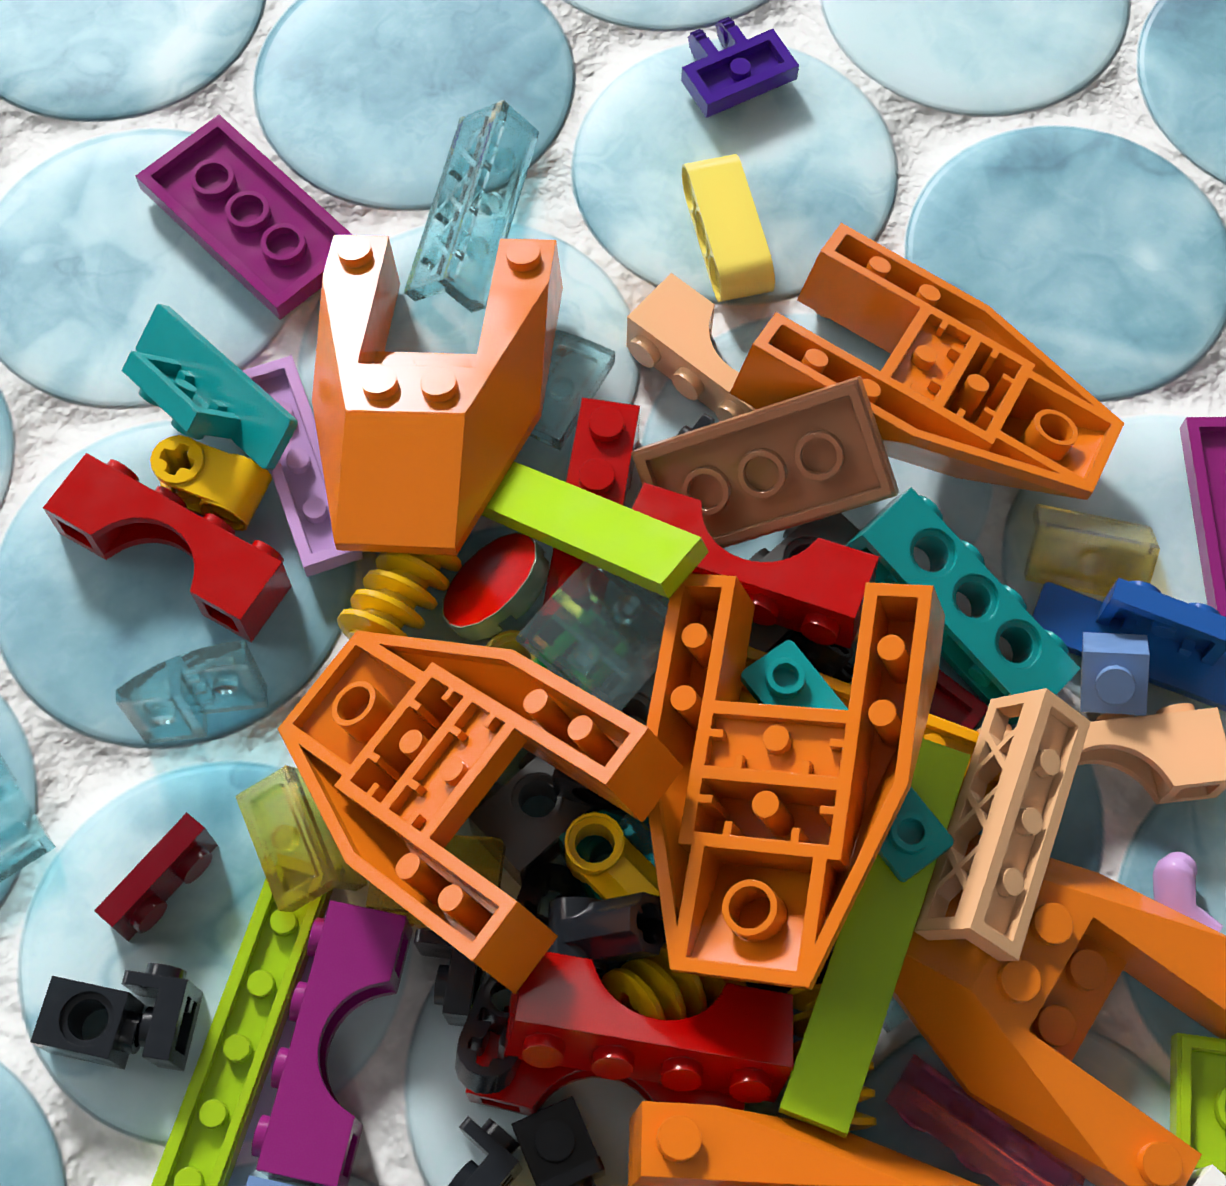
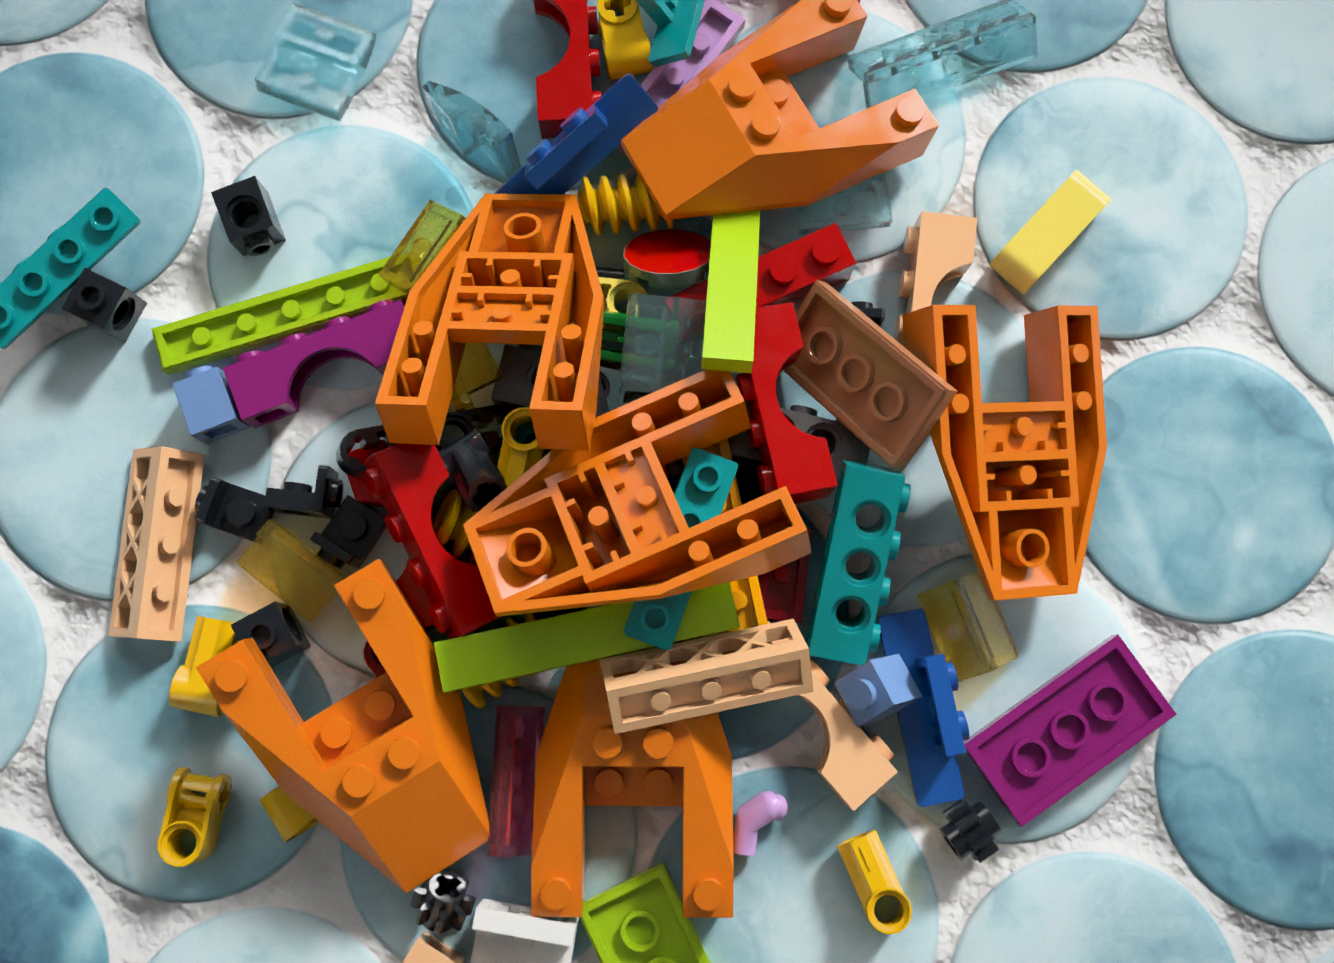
camera: 55 degrees right, 15 degrees up
(143, 893) = (370, 193): dark red plate -> none
(170, 1024) = (283, 260): black bracket -> none
(302, 589) = (583, 142): none -> blue bracket
(738, 71) = (1188, 157): dark purple hinge -> none

